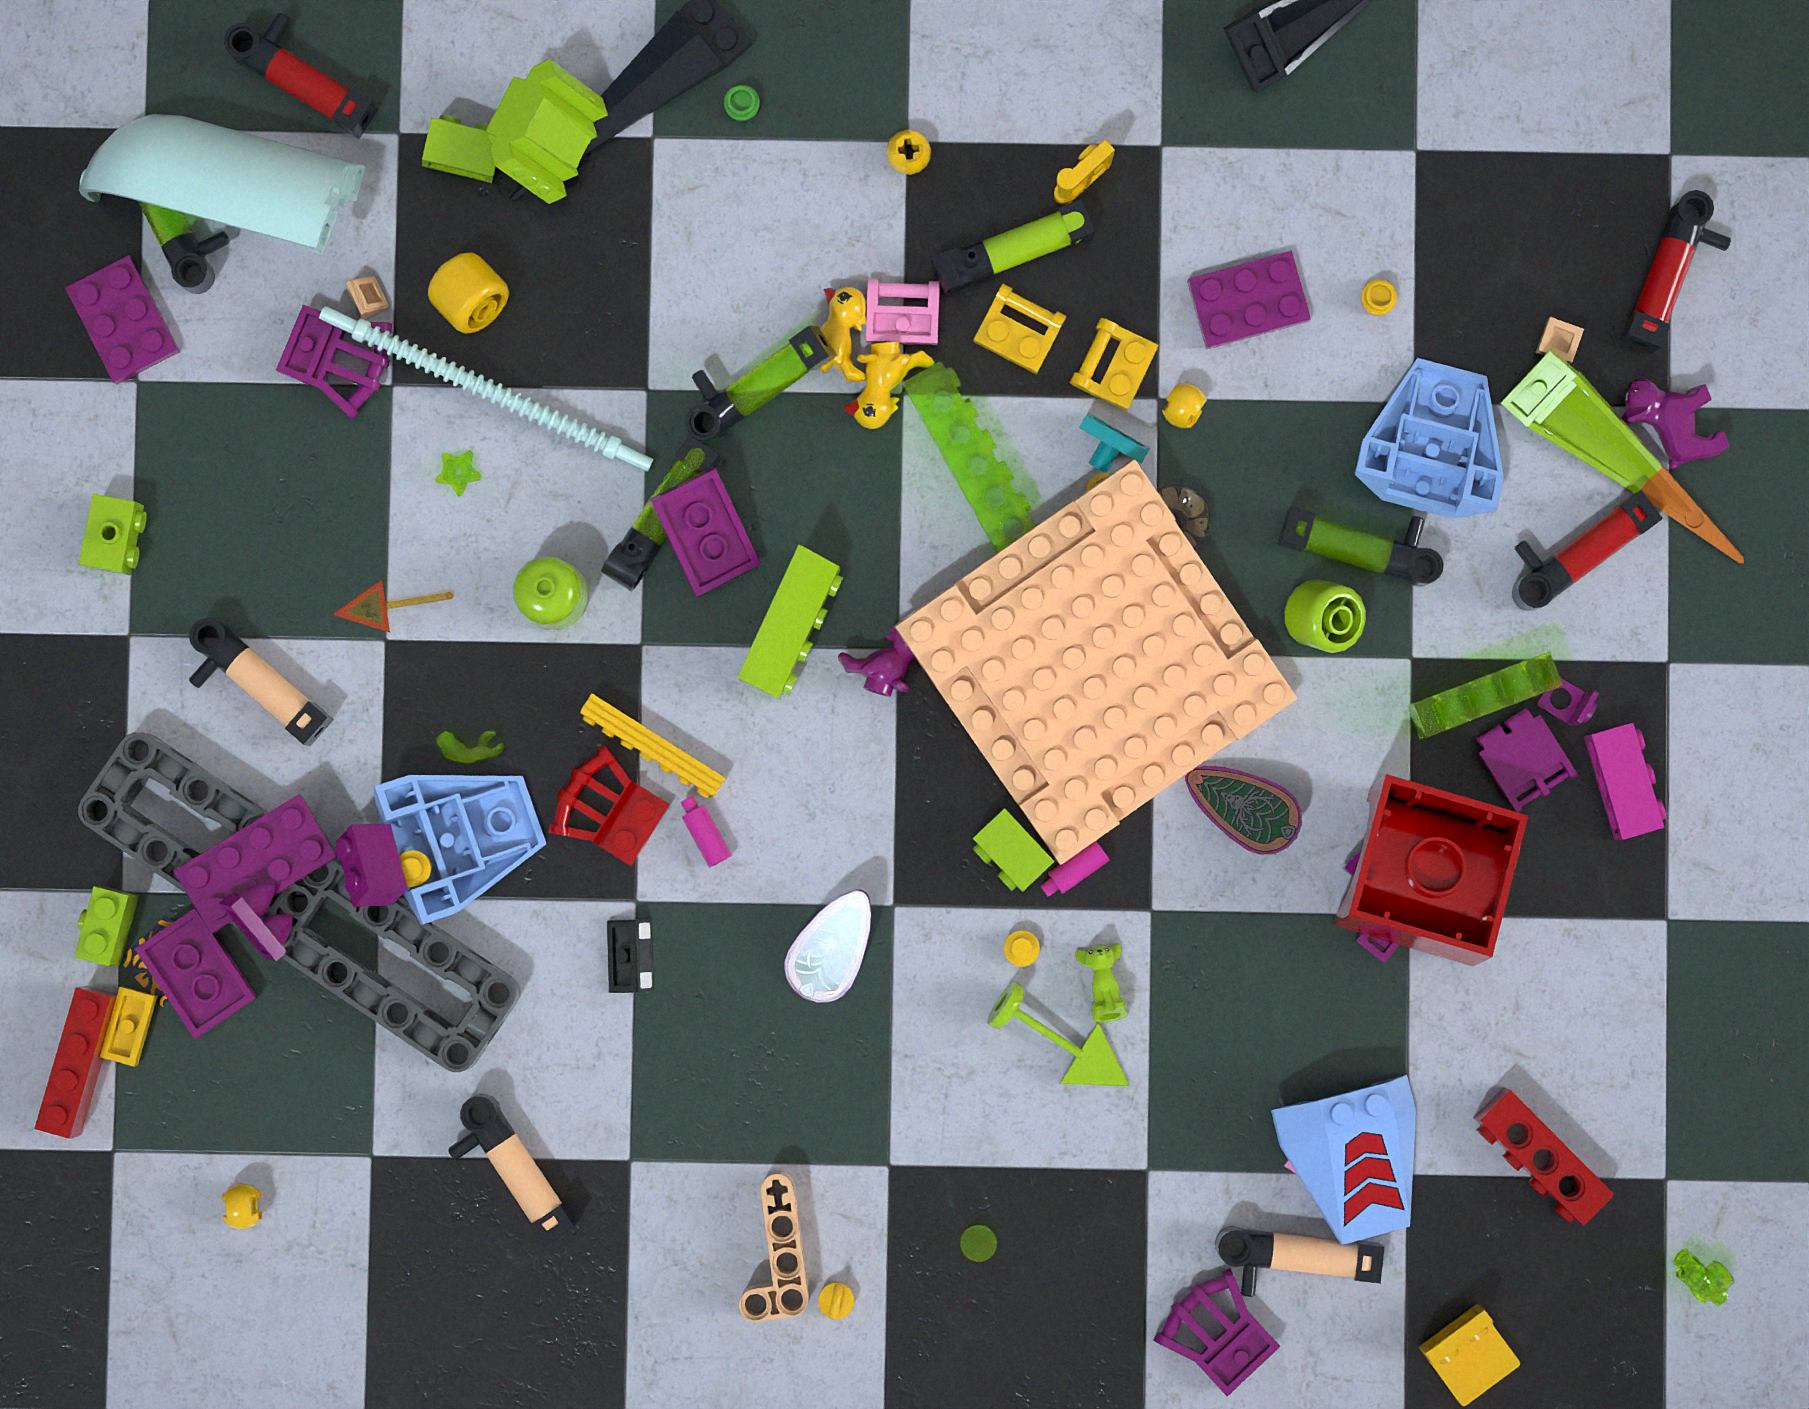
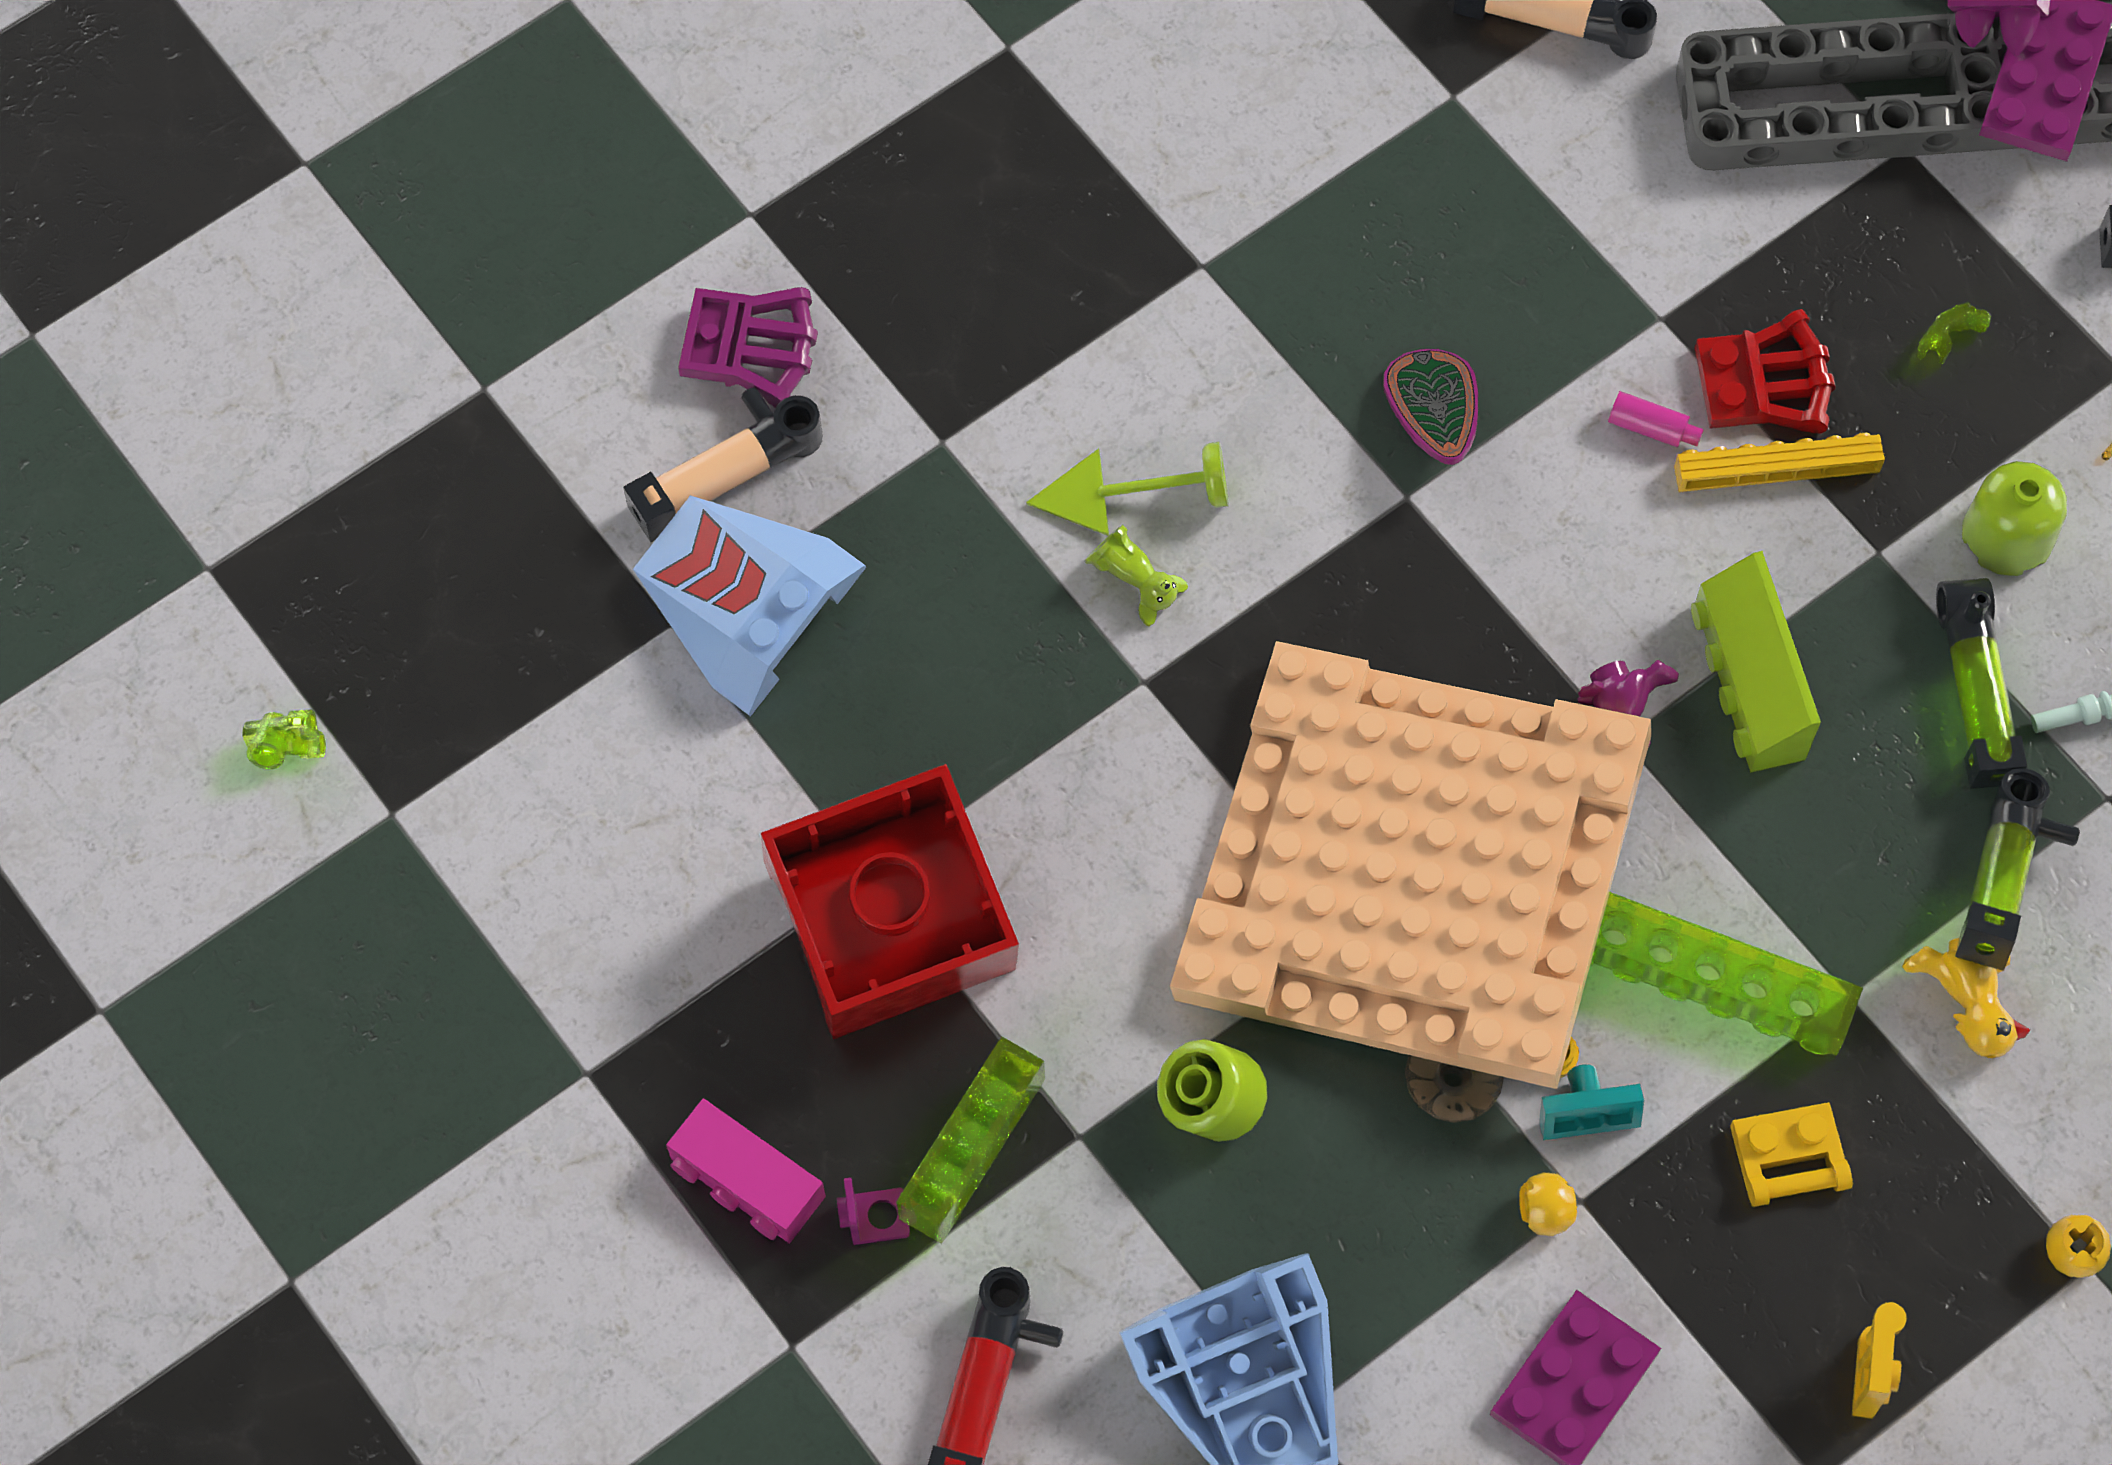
camera: 140 degrees right, 20 degrees down
(371, 865) = (1944, 138): magenta brick -> none
(415, 867) = (1900, 172): yellow plate -> none
(466, 827) = (1886, 238): light blue wedge -> none
(630, 956) = (1619, 265): pearl dark grey slope -> none
(704, 531) = (1922, 686): magenta plate -> none
(779, 1244) = (1284, 154): light nougat beam -> none
(836, 1300) = (1149, 113): yellow tile -> none
(883, 373) = (1890, 991): yellow animal -> none
(902, 323) = (1916, 1061): bright pink plate -> none
(965, 266) = (1874, 1233): piece -> none
(978, 1243) = (1055, 255): clear neon green plate -> none
(1012, 851) = (1337, 618): lime brick -> none
(1021, 948) = (1245, 545): yellow plate -> none
(1075, 869) = (1255, 657): dark pink cylinder -> none
(1125, 369) = (1642, 1200): yellow plate -> none
(1247, 808) = (1131, 838): shield -> none
(1360, 548) = (1303, 1172): piece -> none
(1470, 1355) = (477, 498): yellow bracket -> none
(1523, 758) = (875, 1115): magenta plate -> none
(1588, 1192) = (515, 744): red brick -> none

